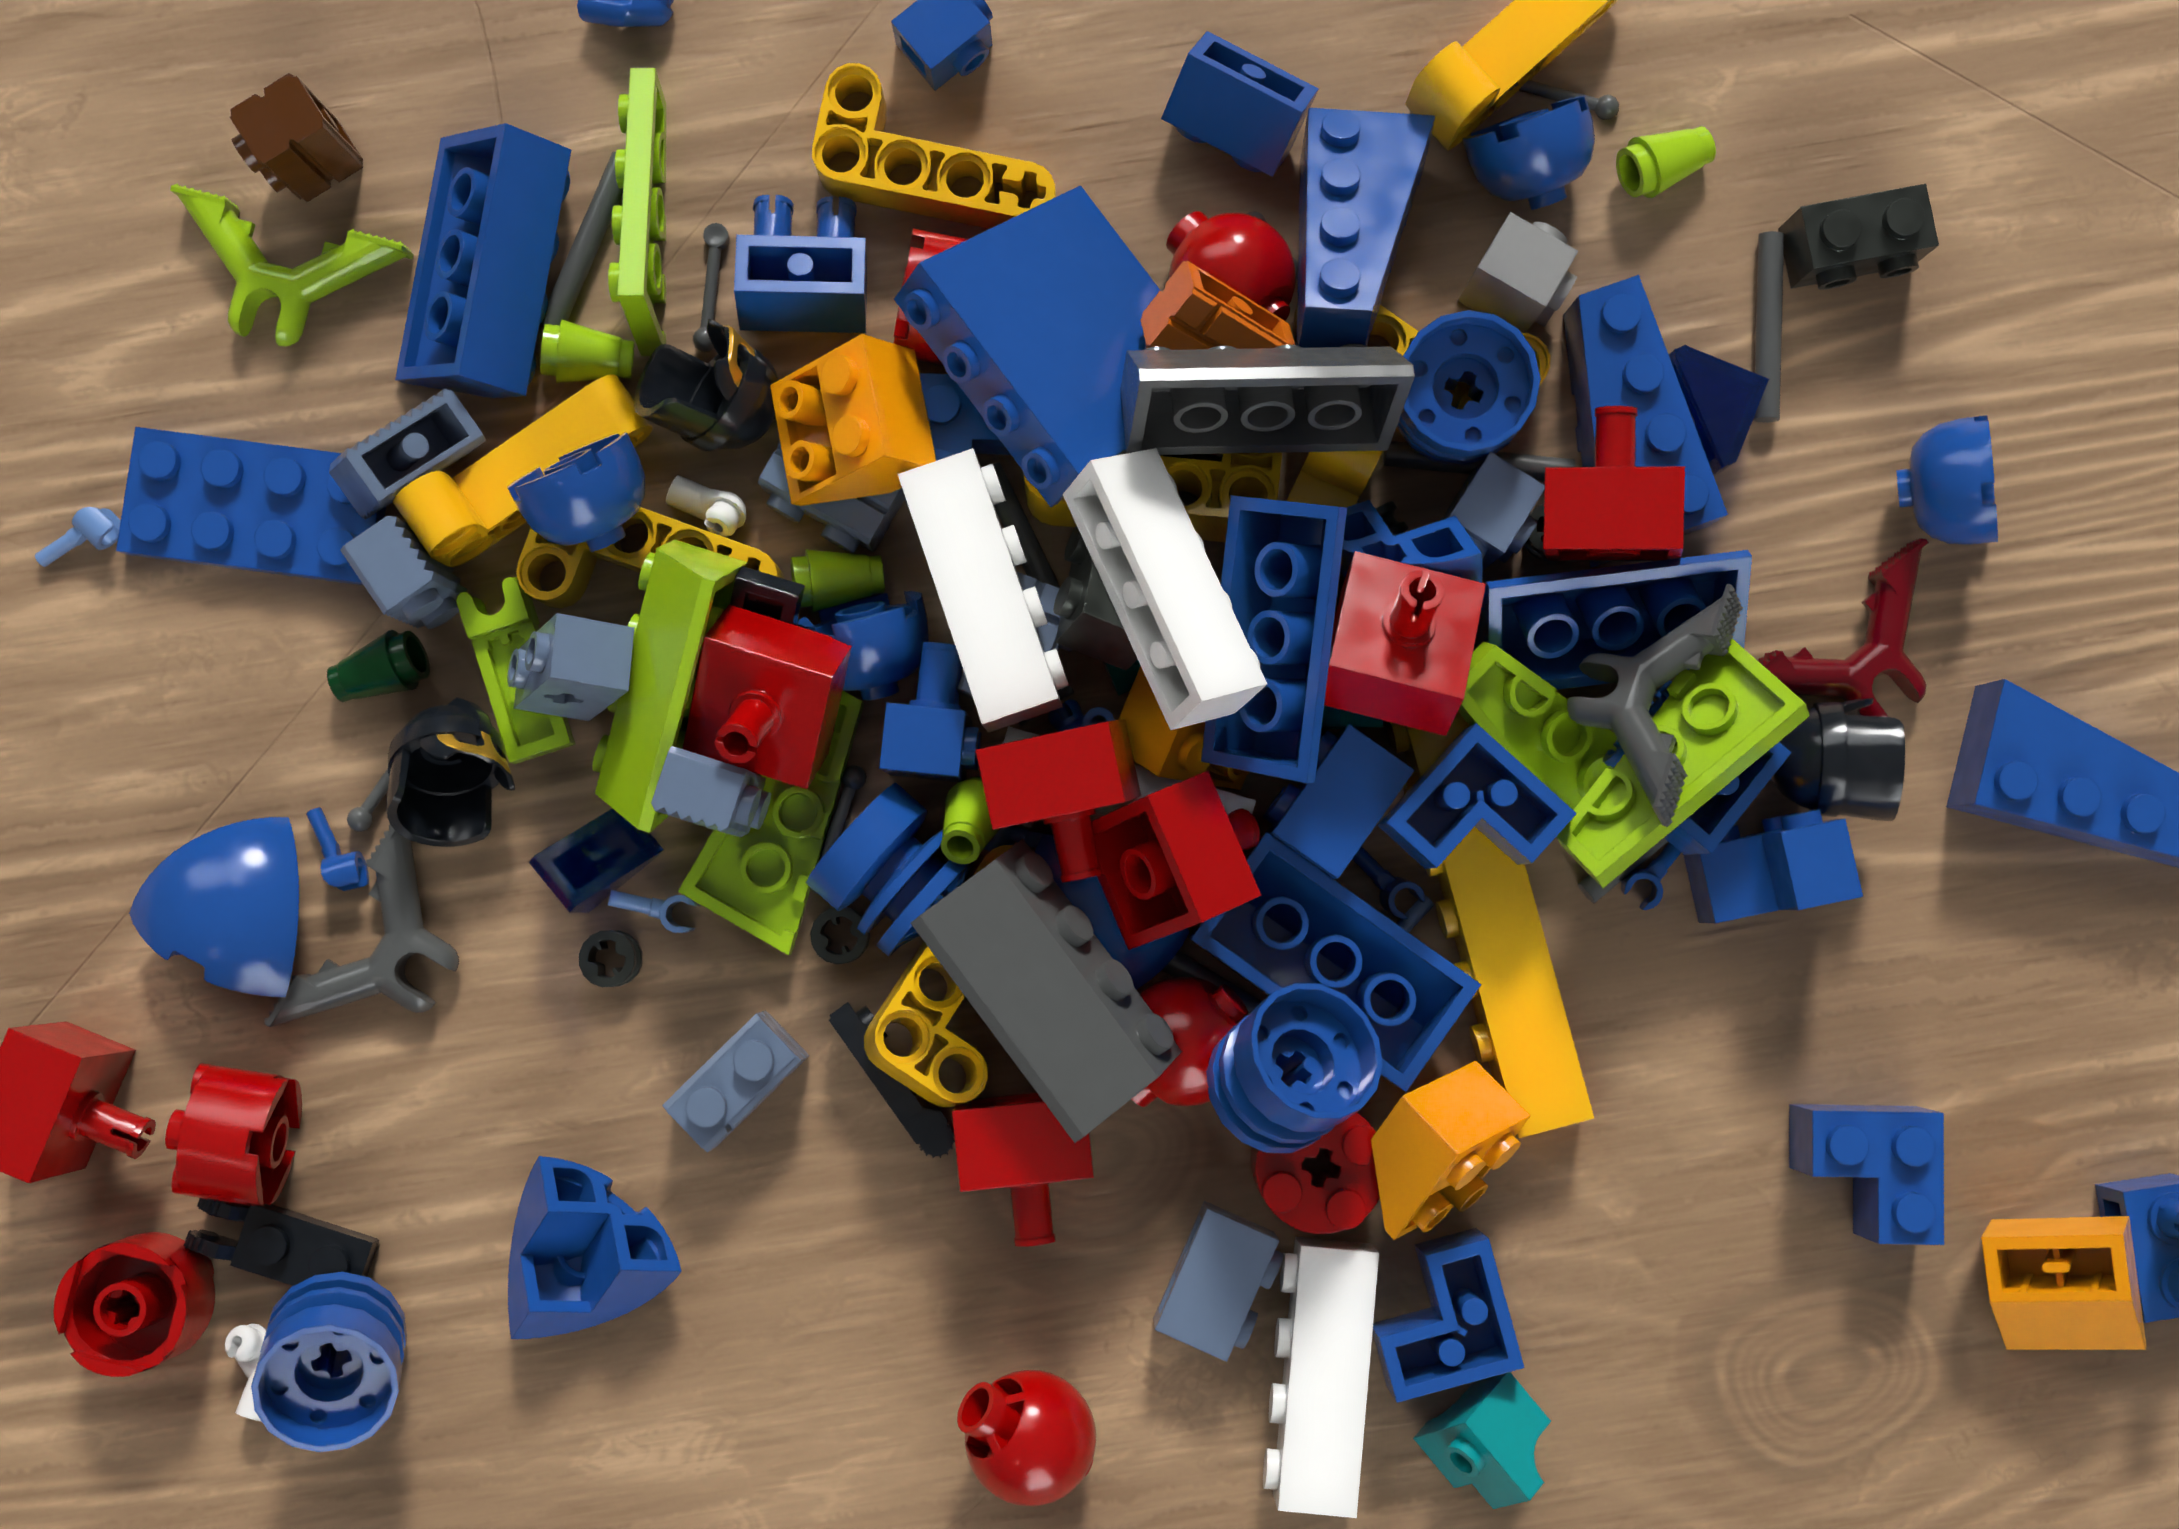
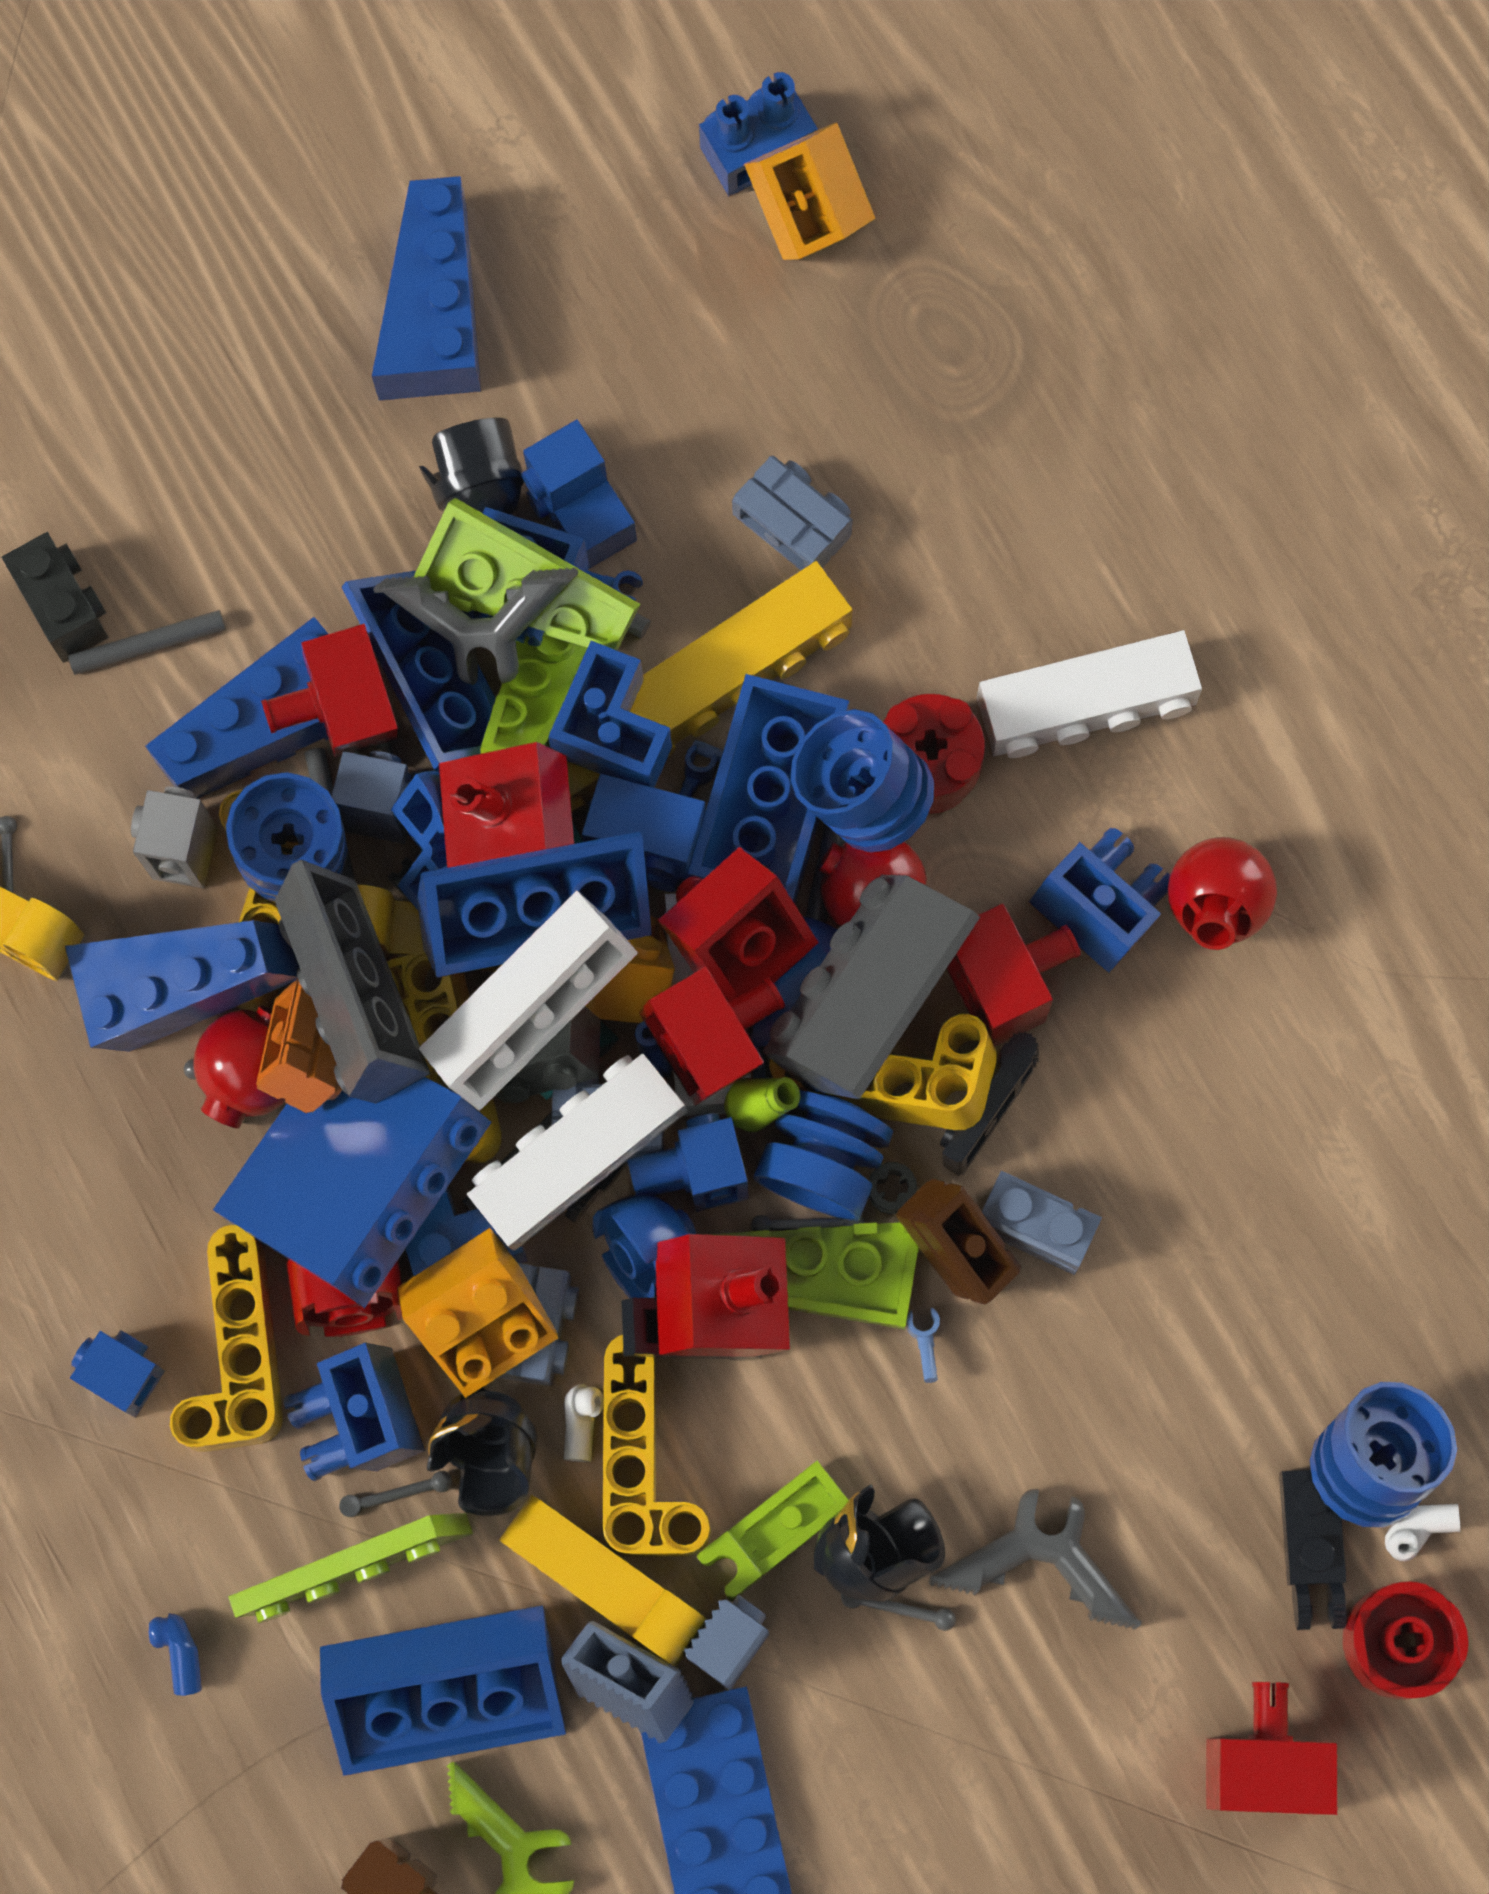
camera: 105 degrees left, 10 degrees down
(228, 905) = (1054, 1690): blue brick -> none
(234, 1135) = (1238, 1608): red brick -> none
(337, 869) = (992, 1615): blue hand -> none
(382, 667) = (812, 1646): dark green cone -> none
(572, 667) = (755, 1465): sand blue brick -> none
(581, 1253) = (1222, 1297): blue brick -> none
(584, 247) = (389, 1612): dark grey bar -> none
(584, 353) = (489, 1575): lime cone -> none
(584, 494) = (608, 1506): blue cylinder -> none
(595, 861) = (901, 1402): clear blue slope -> none
(595, 971) = (967, 1356): pearl dark grey bush -> none
(682, 601) = (739, 1388): lime slope -> none
(711, 793) = (816, 1311): sand blue brick -> none
(741, 983) = (958, 1241): none -> reddish brown brick
(836, 577) = (601, 1295): lime cone -> none
(1069, 1285) = (1097, 903): none -> blue brick
(1217, 1282) = (1049, 797): sand blue brick -> none
(1238, 104) = (102, 1107): blue brick -> none
(1442, 1147) = (880, 660): light orange slope -> none
(1464, 1331) = (1013, 602): blue brick -> none
(1489, 1441) = (1089, 557): teal brick -> none
(1534, 152) = (67, 863): blue cylinder -> none
(1663, 160) = (39, 765): lime cone -> none
(1664, 1113) = (793, 514): none -> sand blue brick
(1720, 402) = (223, 653): clear blue slope -> none
(1882, 647) = (376, 475): dark red piece -> none
(1892, 1160) = (764, 343): blue brick -> none
(1952, 482) = (228, 463): blue cylinder -> none

